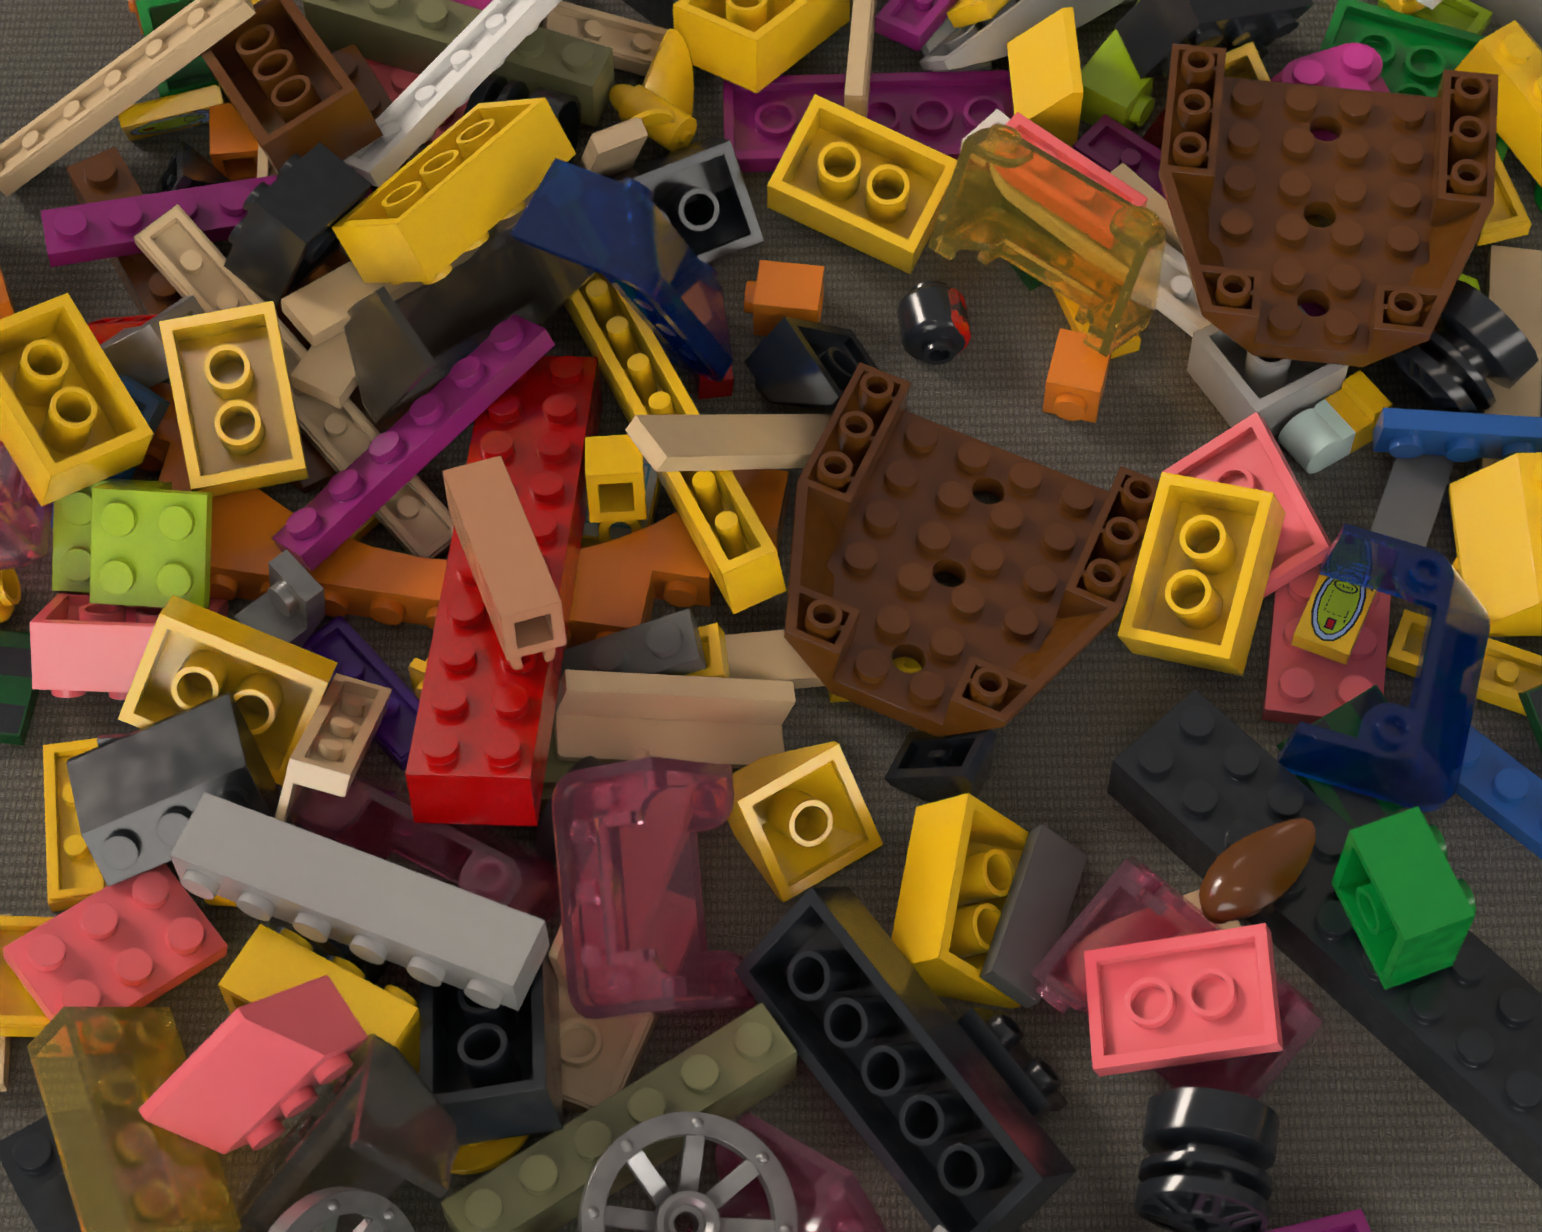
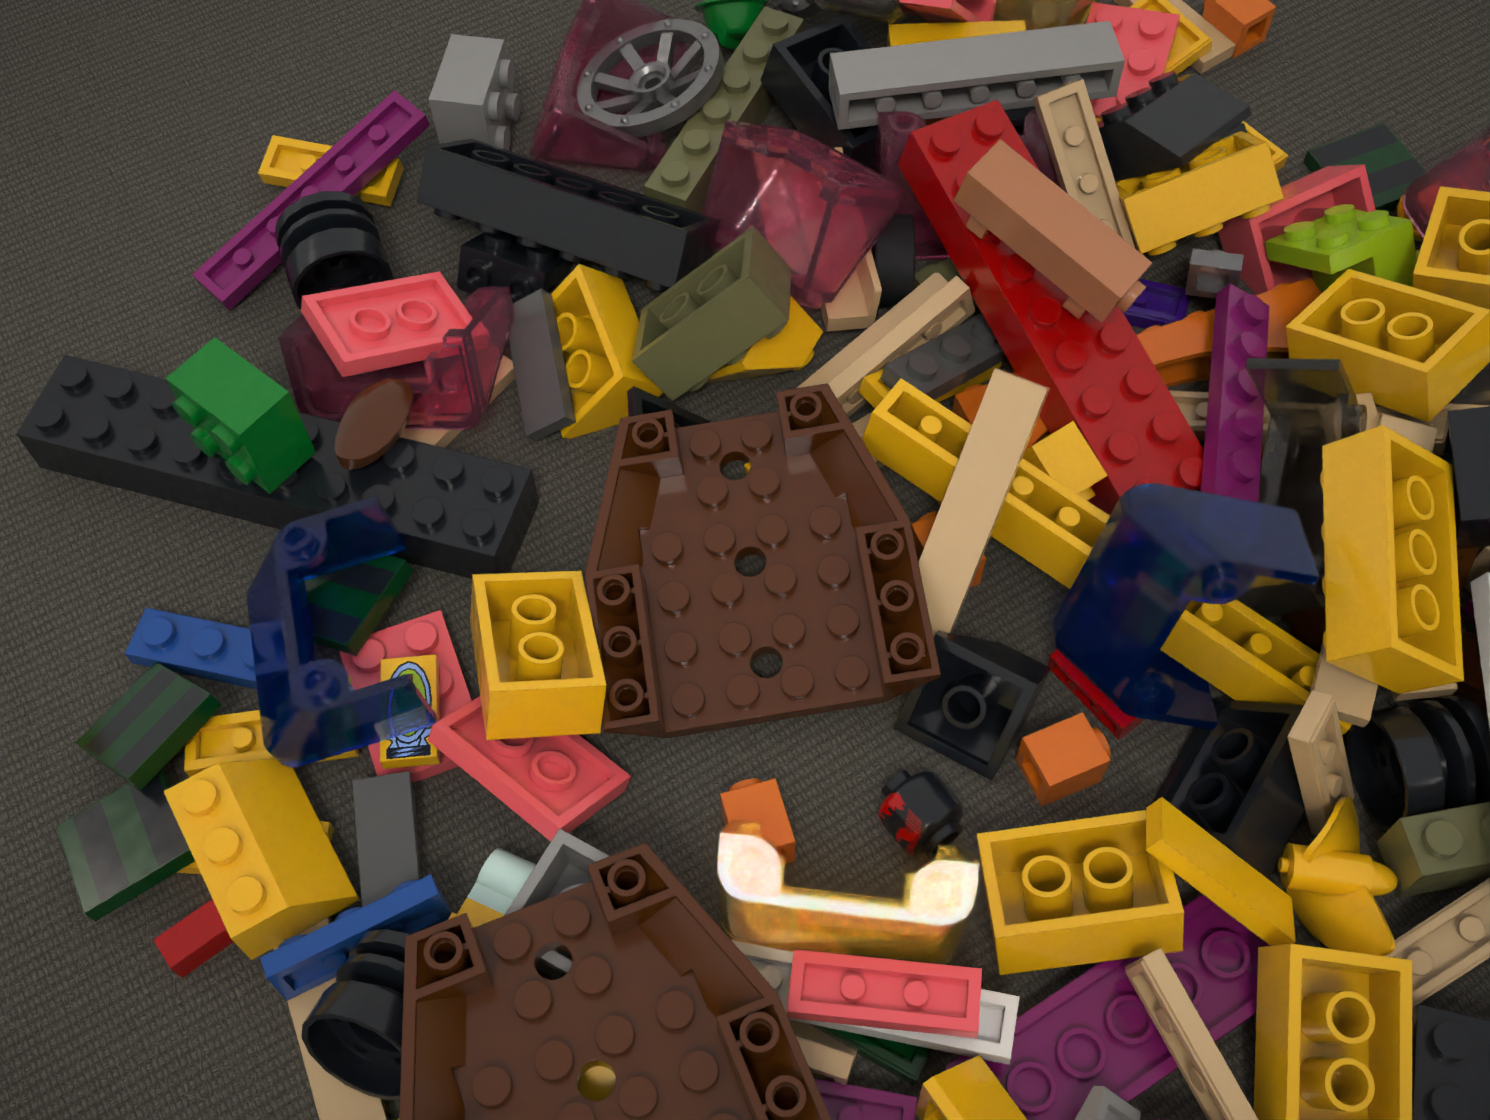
camera: 150 degrees right, 0 degrees up
(756, 127) = (1219, 873): none -> yellow tile
(835, 806) = (713, 315): none -> olive brick

